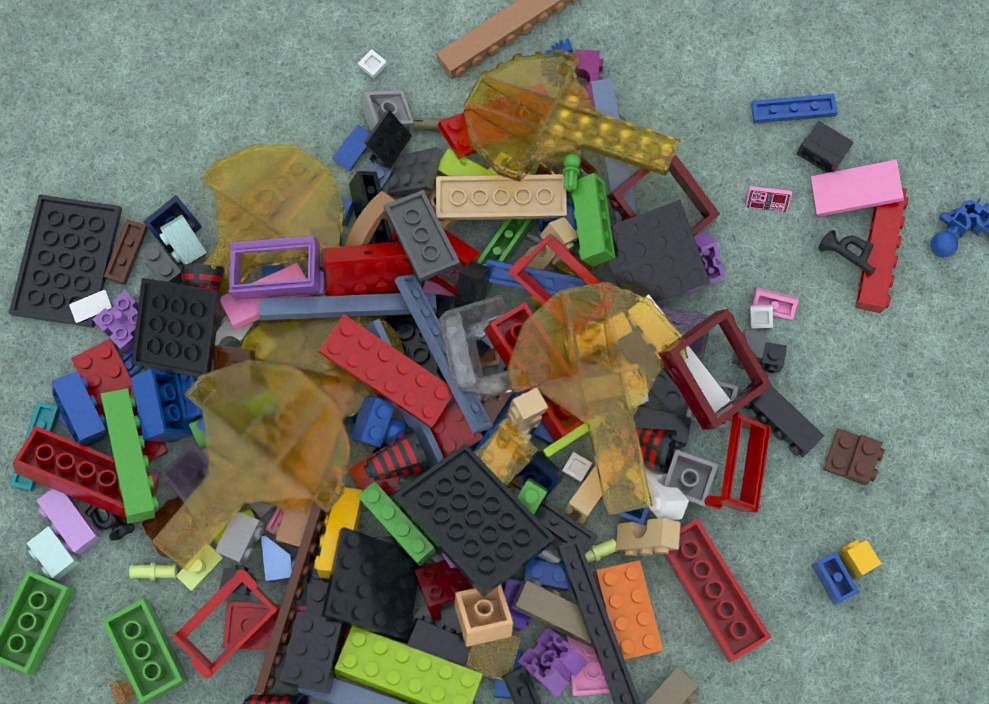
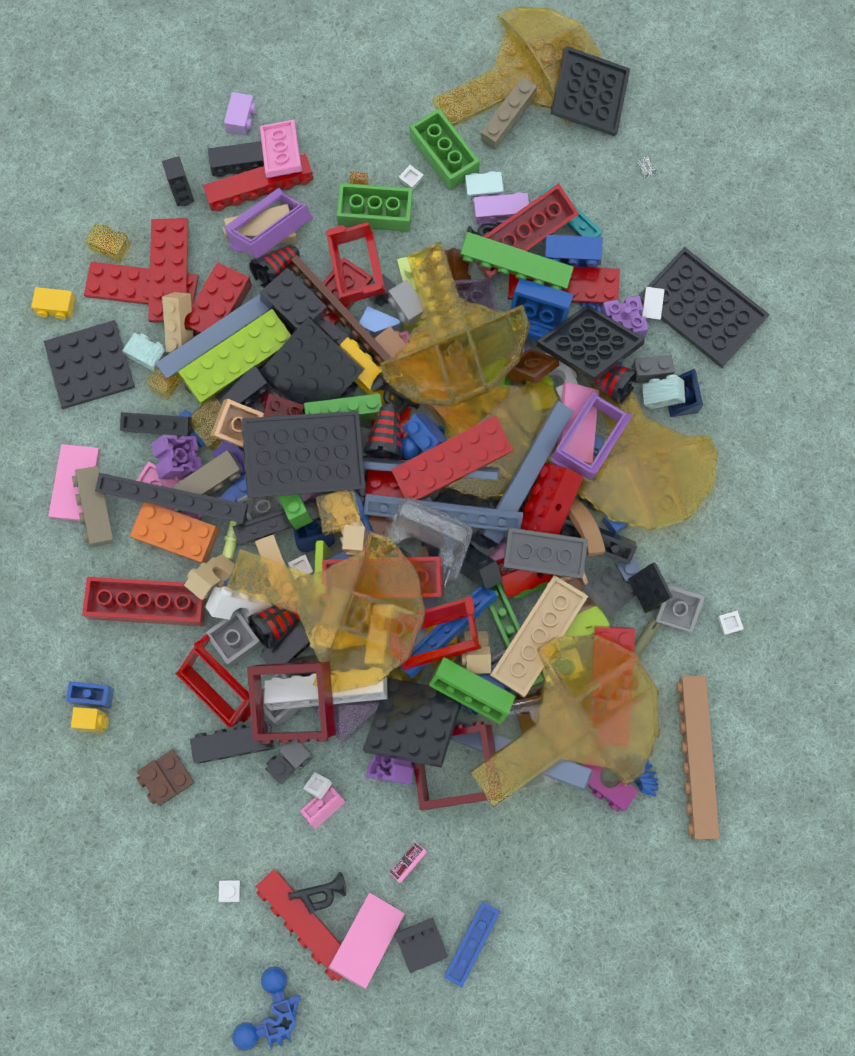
camera: 120 degrees right, 0 degrees up
(85, 639) = (411, 177): none -> white plate
(125, 252) = (682, 350): reddish brown plate -> none
(153, 571) = (430, 238): yellowish green pin -> none
(346, 505) = (380, 384): none -> black piece
(352, 148) = (662, 557): blue slope -> none
(571, 171) = (530, 705): bright green axle -> none
(902, 333) = (229, 891): none -> white plate

